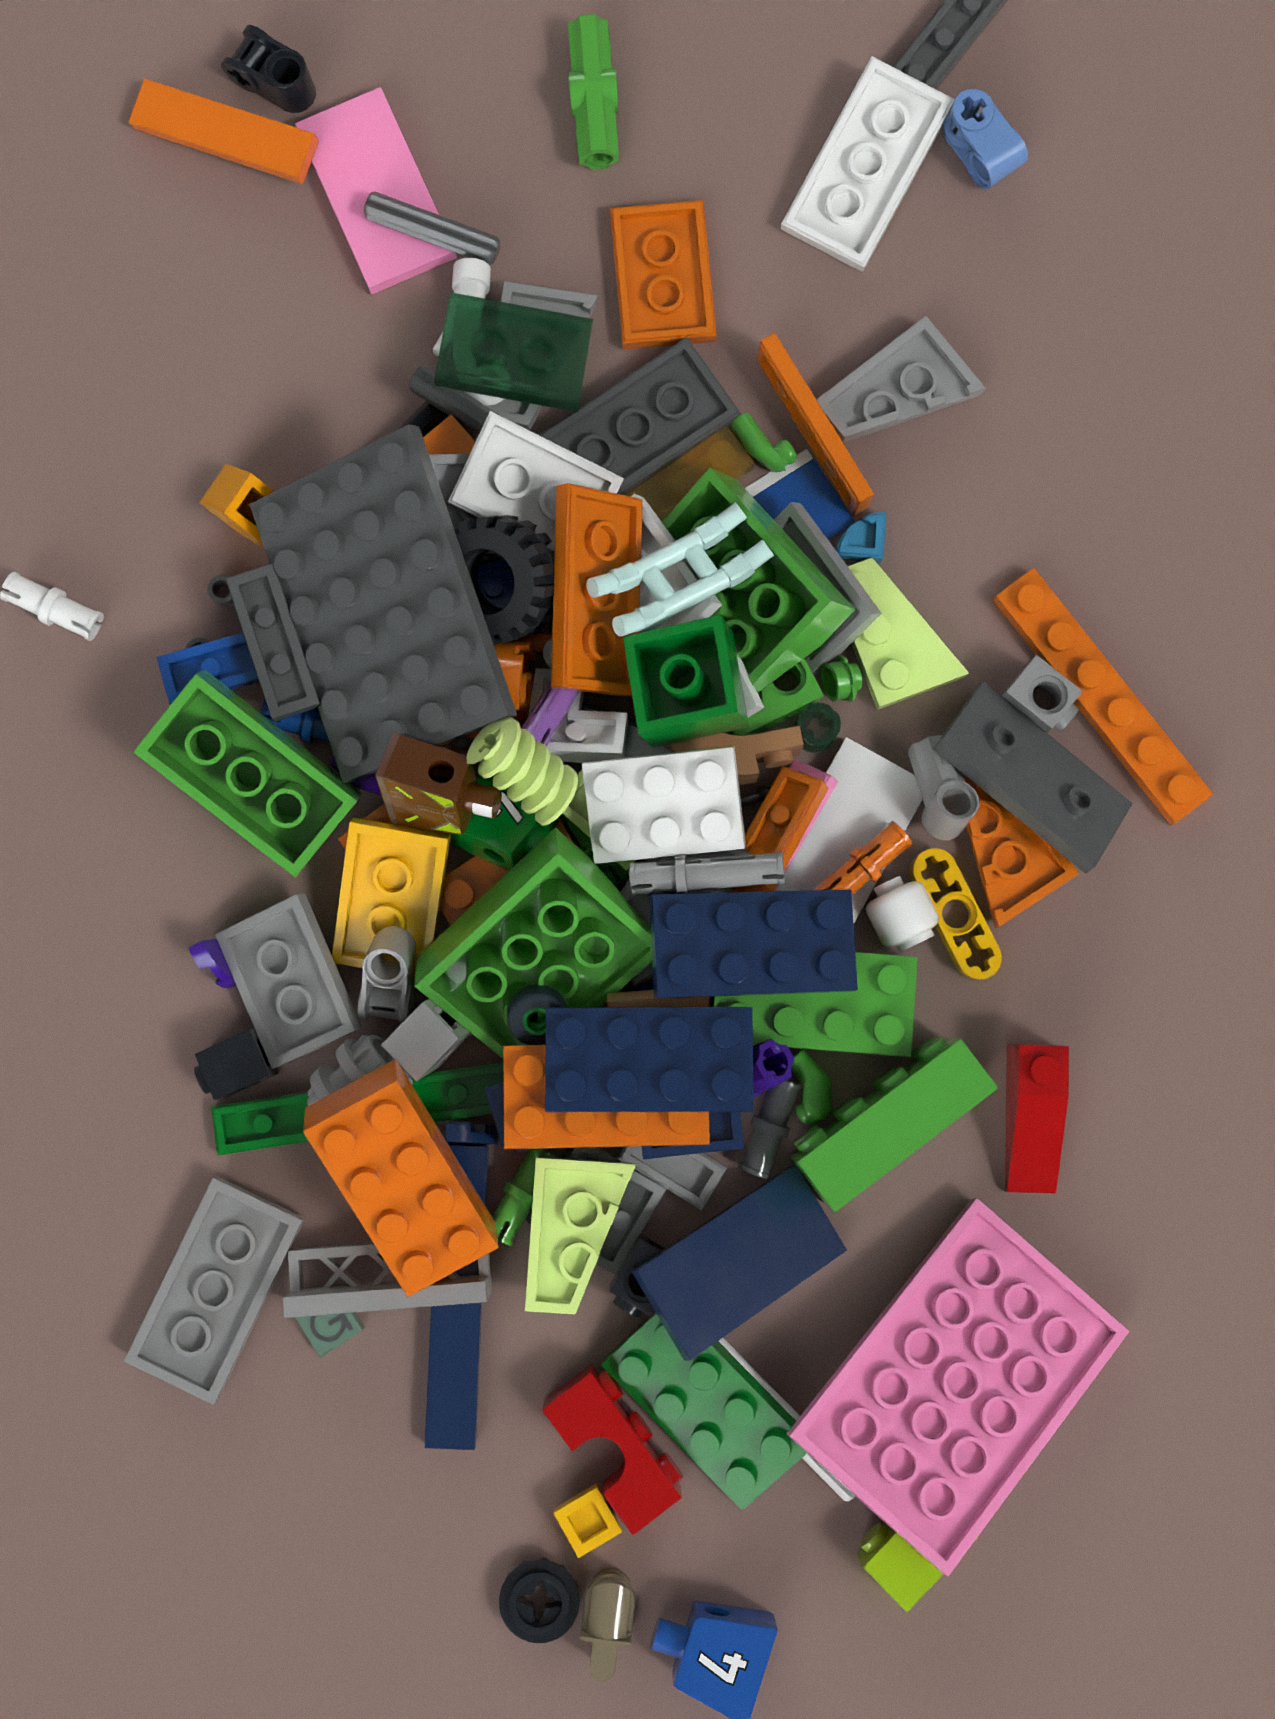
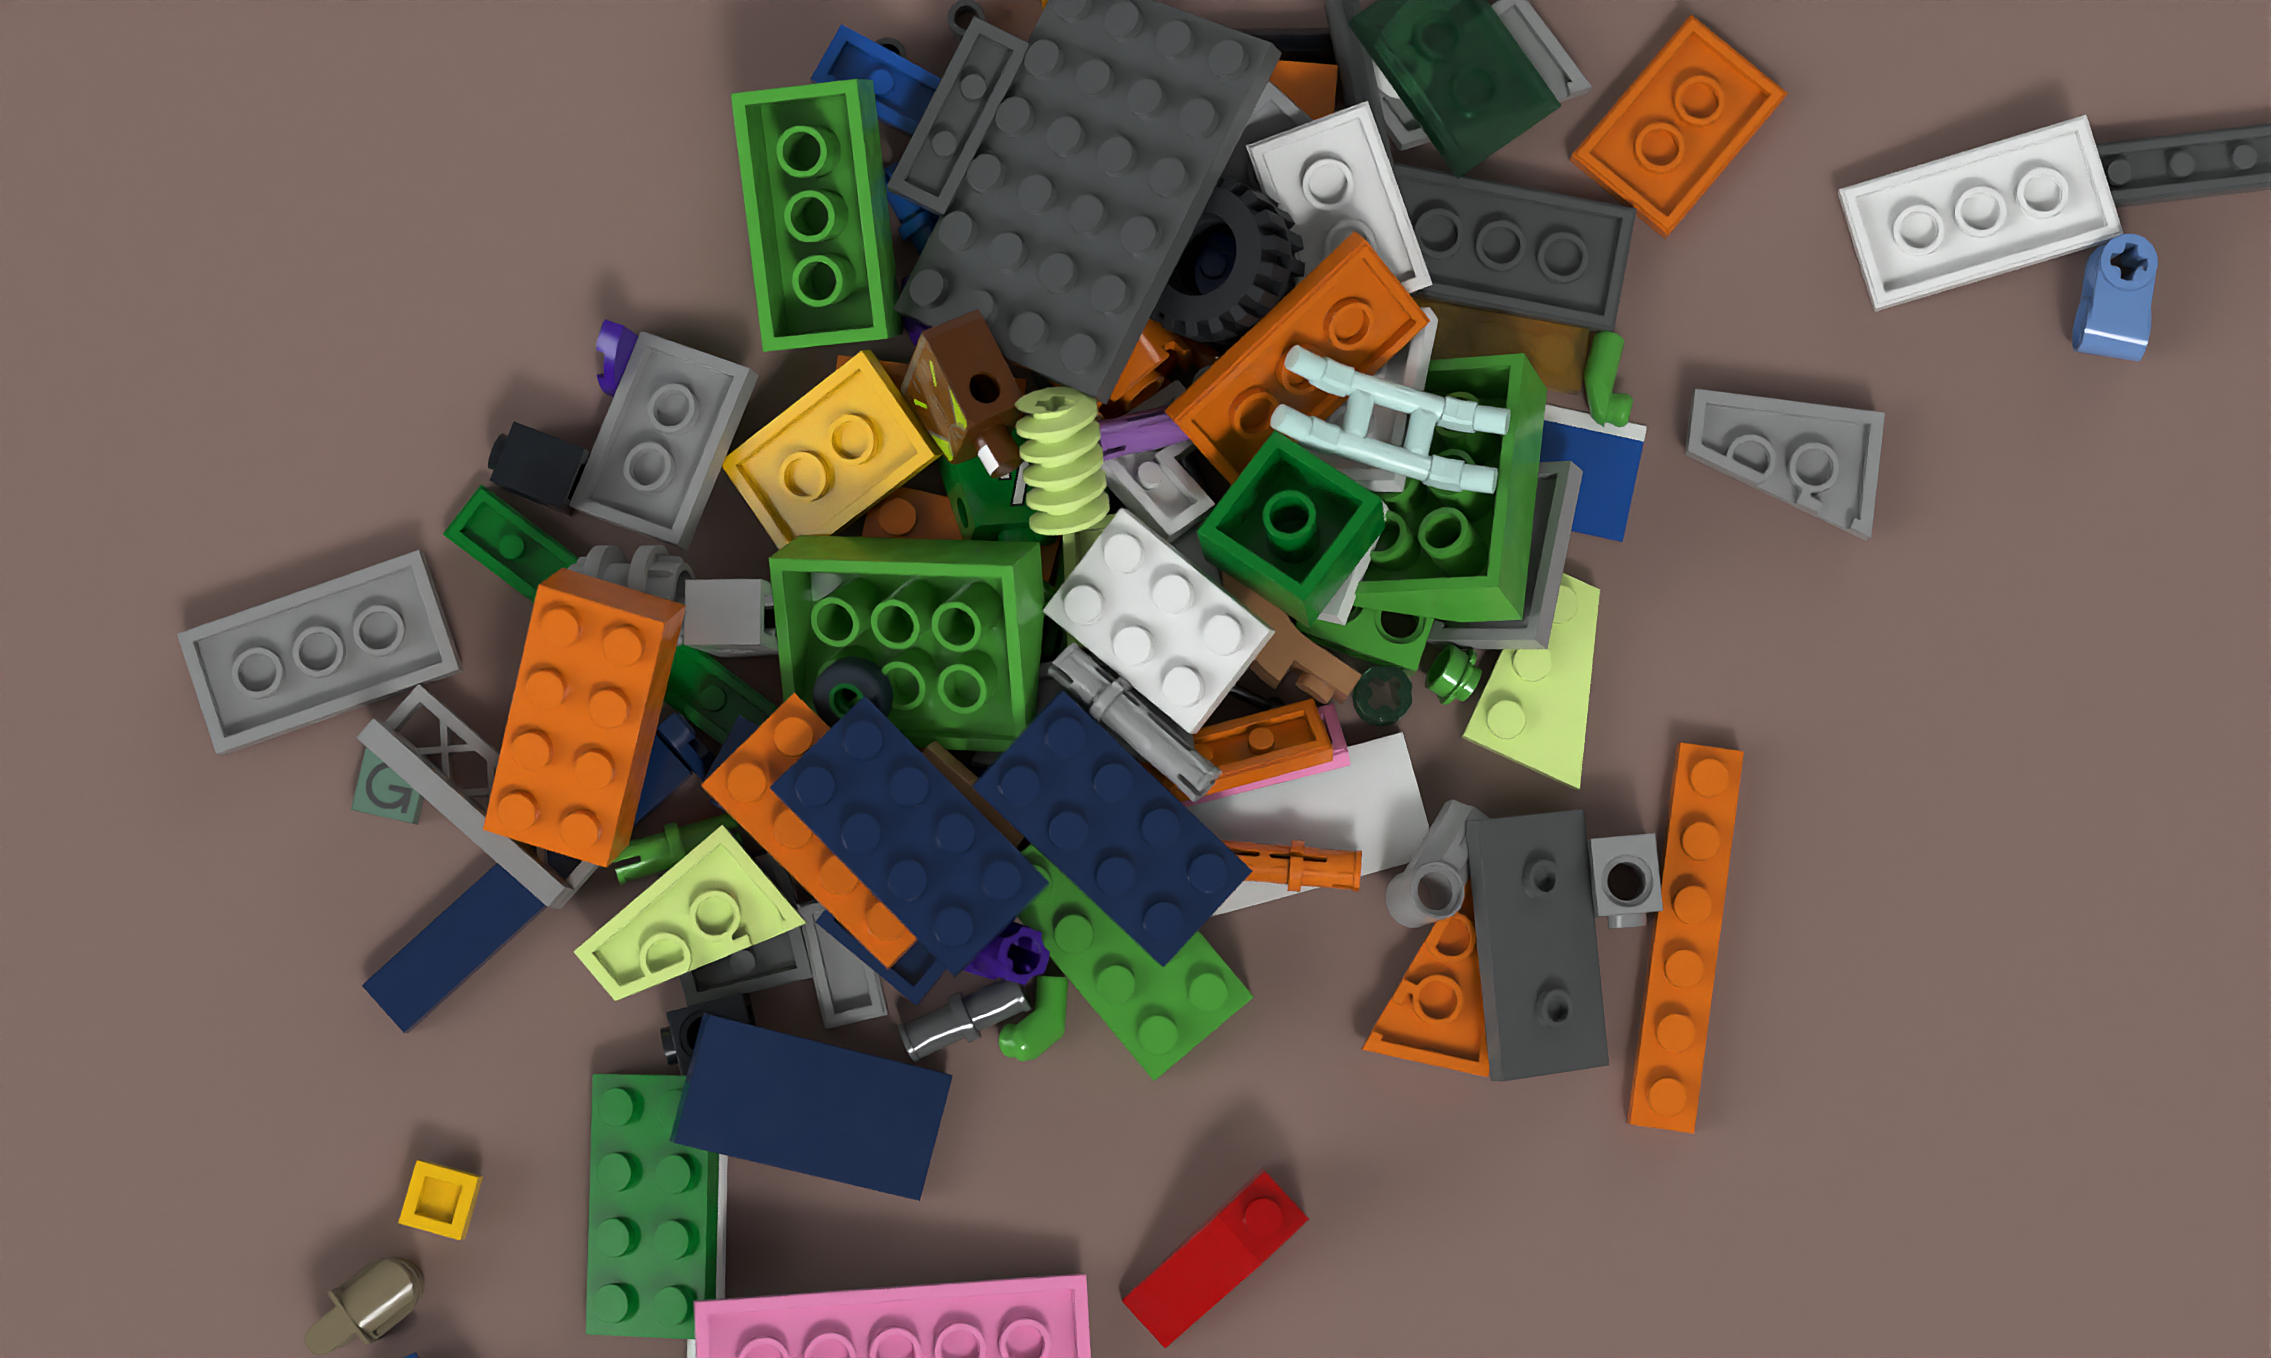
camera: 50 degrees right, 0 degrees up
(386, 984) = (747, 530): light grey piece -> none
(520, 1613) = (296, 1221): black gear -> none
(591, 1409) = (545, 1103): red arch -> none
(814, 425) = (1672, 410): orange tile -> none
(864, 539) = (1610, 564): dark azure tile -> none
(891, 1121) = (1075, 1121): bright green brick -> none
(902, 913) = (1285, 946): white head -> none
(985, 940) = (1366, 958): yellow beam -> none

